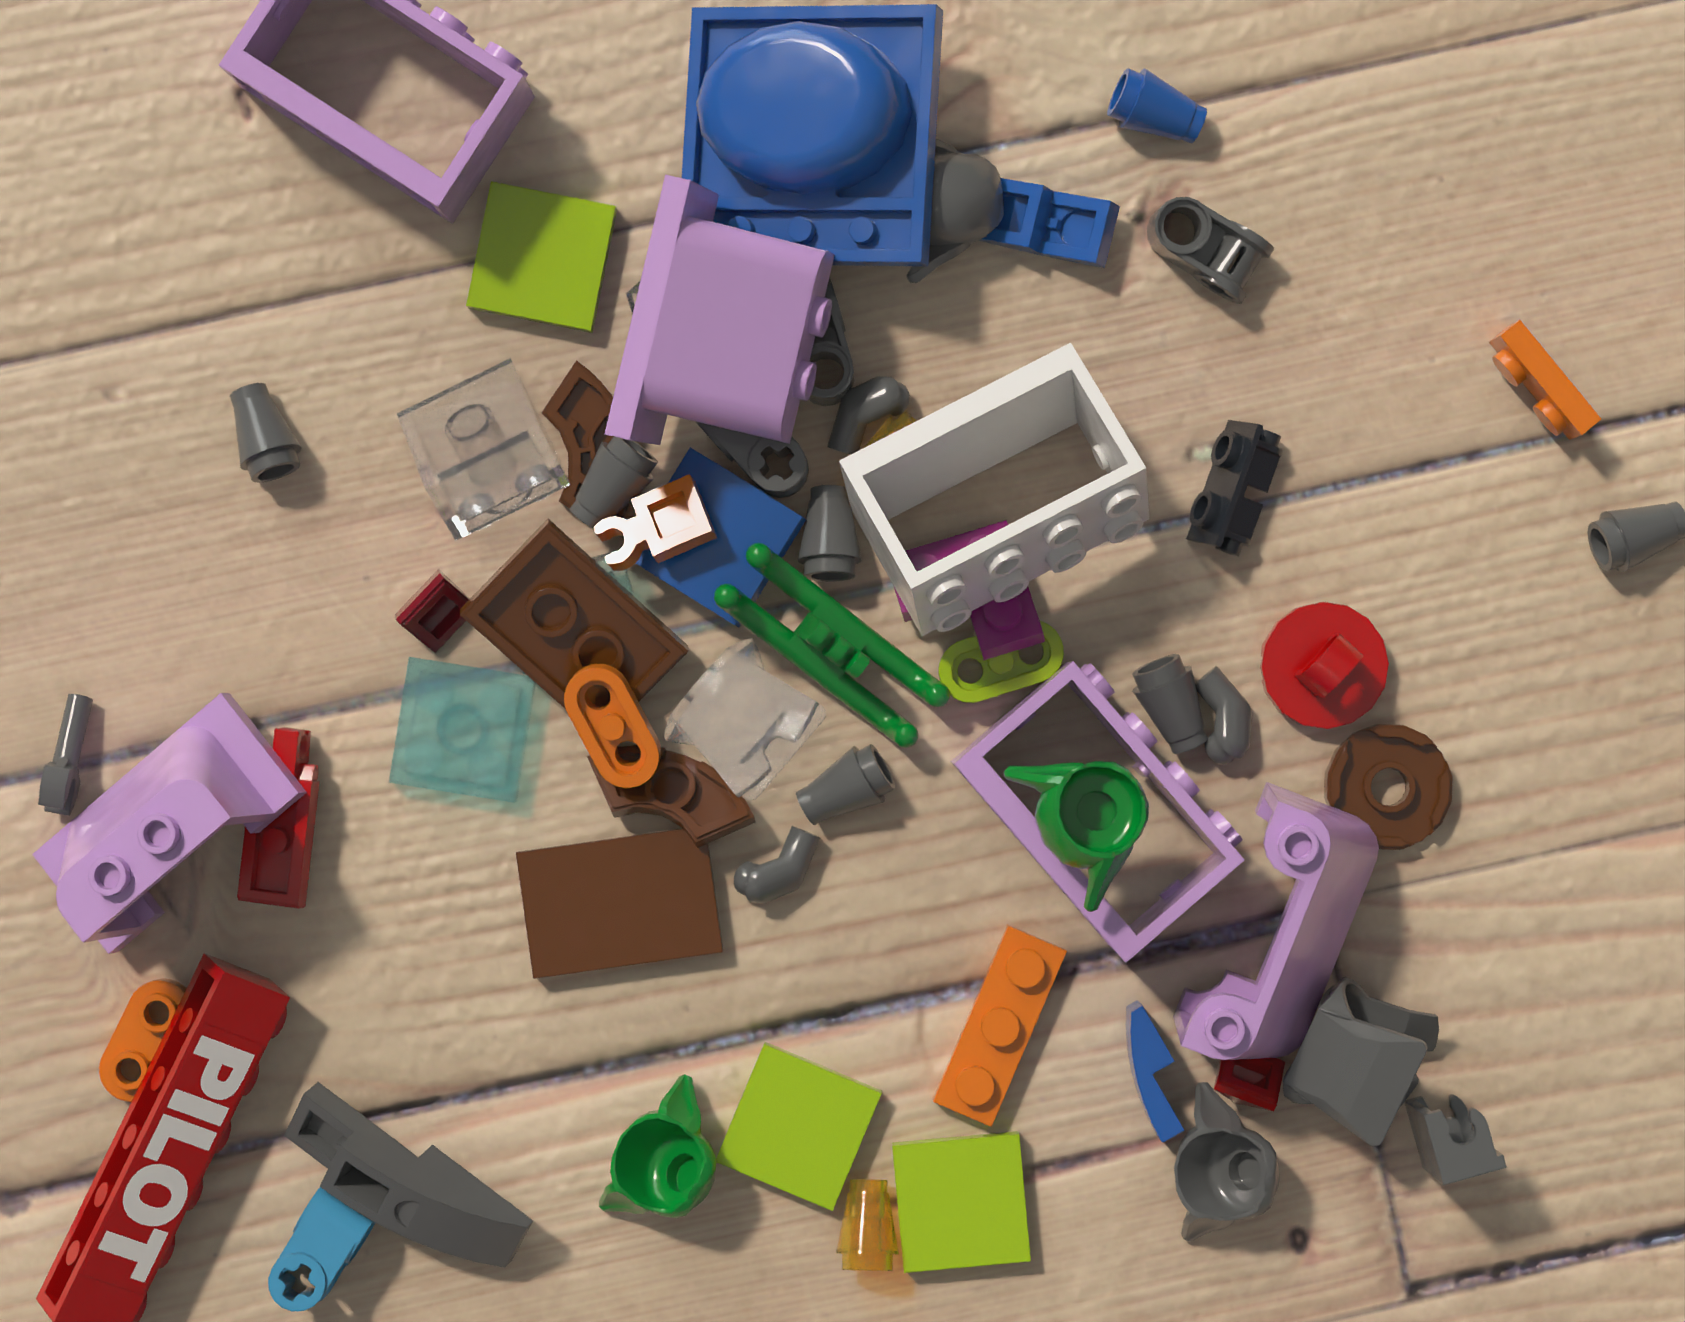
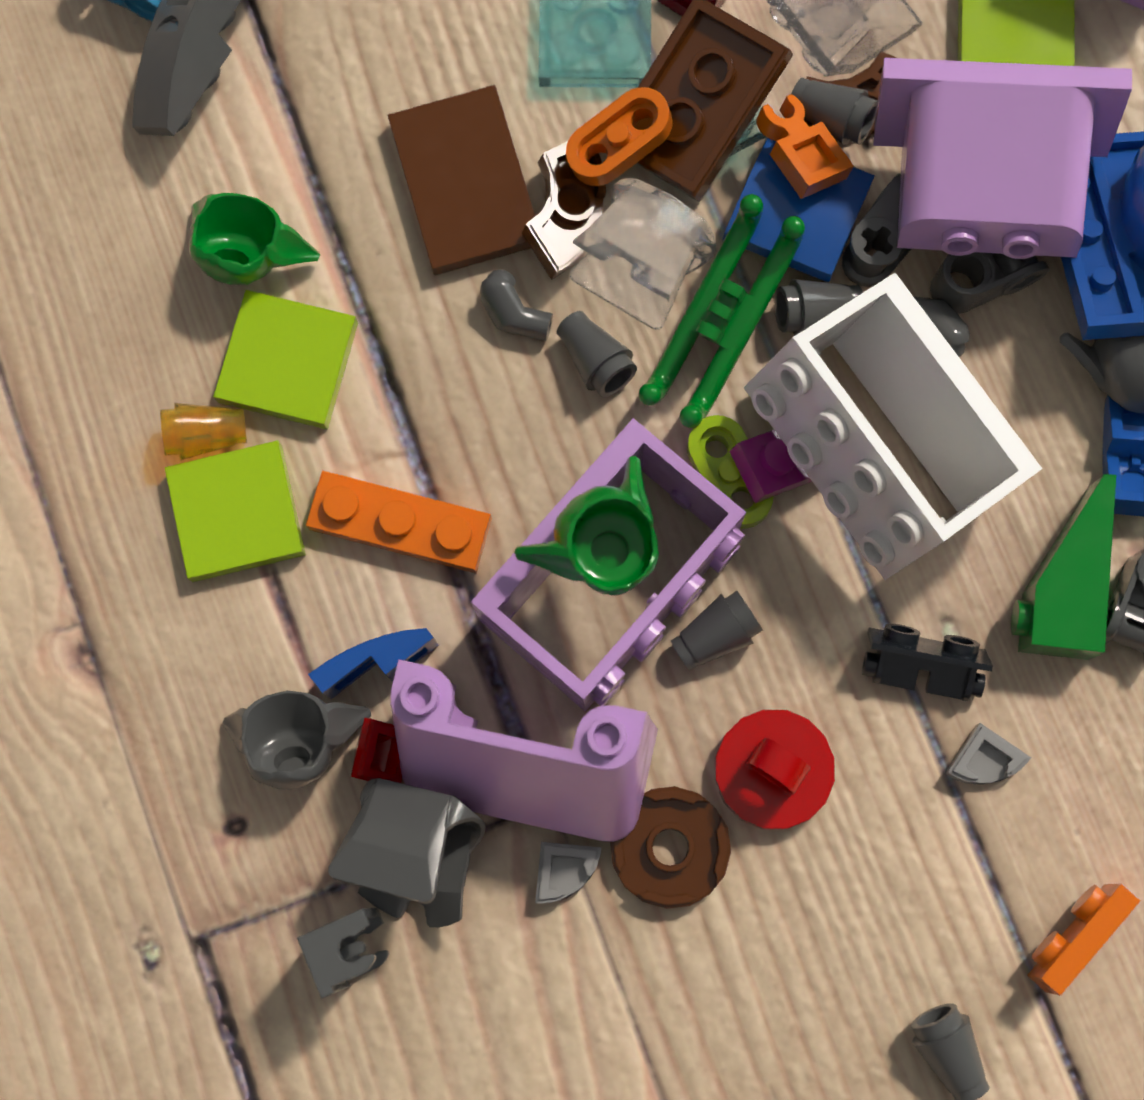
camera: 90 degrees right, 10 degrees down
(1182, 324) = (1069, 594): none -> green slope
(1232, 720) = (711, 690): dark grey arm -> none
(1344, 442) = (986, 758): none -> light grey tile
(1395, 900) = (564, 870): none -> light grey tile

